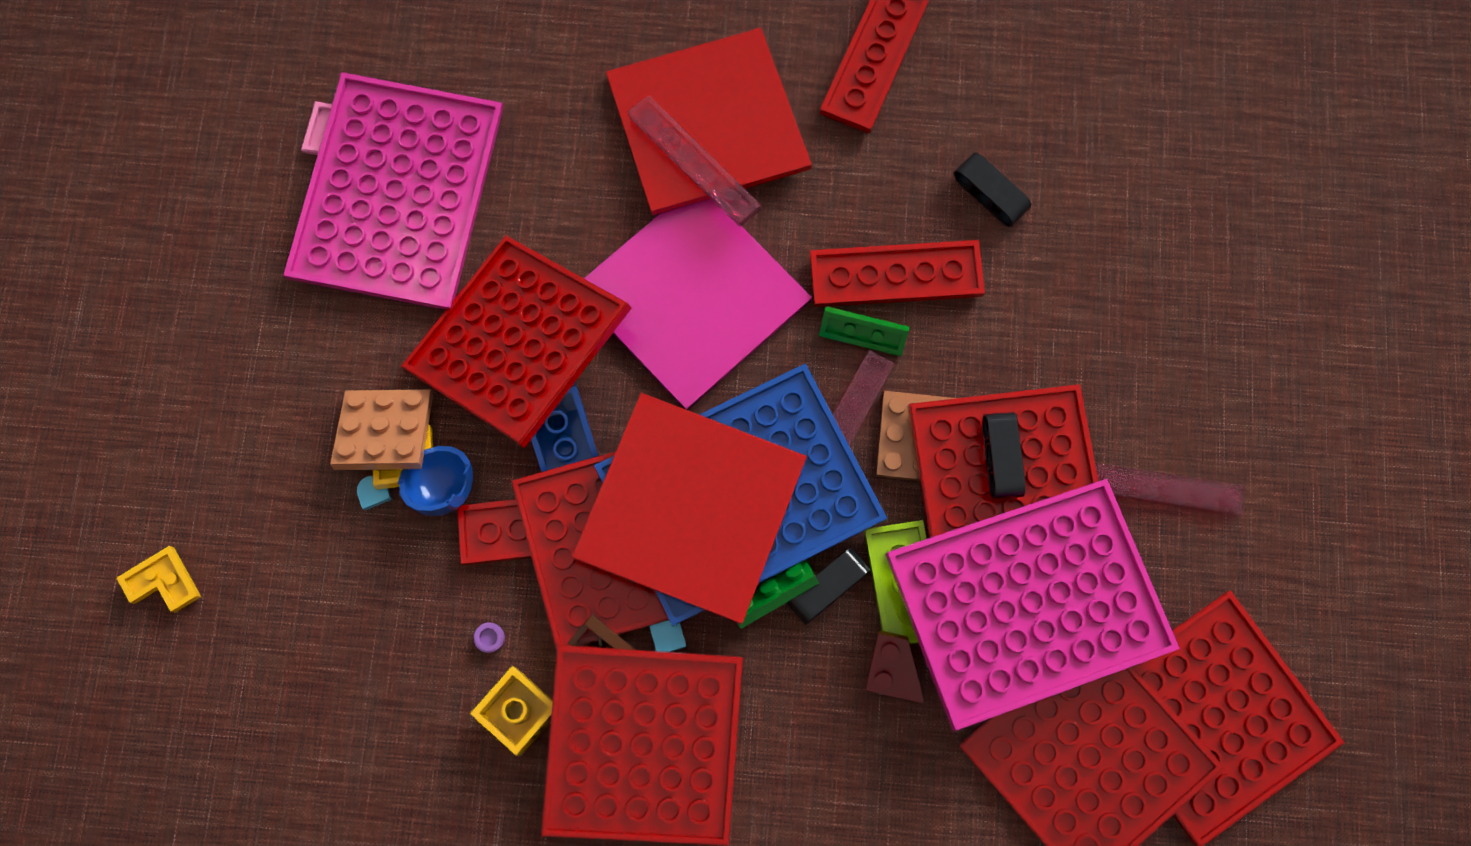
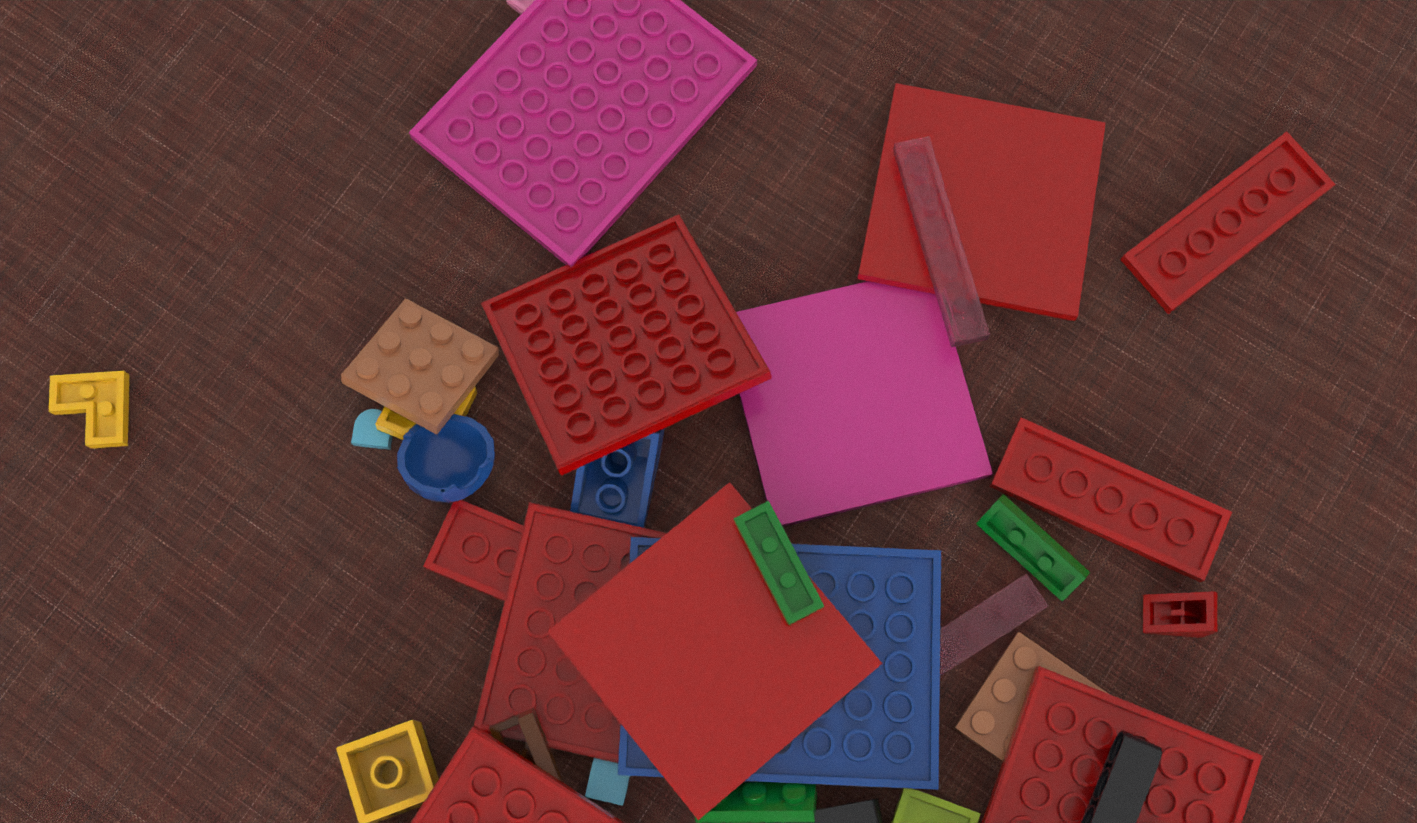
camera: 30 degrees right, 0 degrees up
(489, 638) = (409, 668): medium lavender tile -> none
(703, 426) = (778, 563): none -> green plate
(981, 322) = (1180, 614): none -> red slope
(992, 189) = (1282, 459): black beam -> none

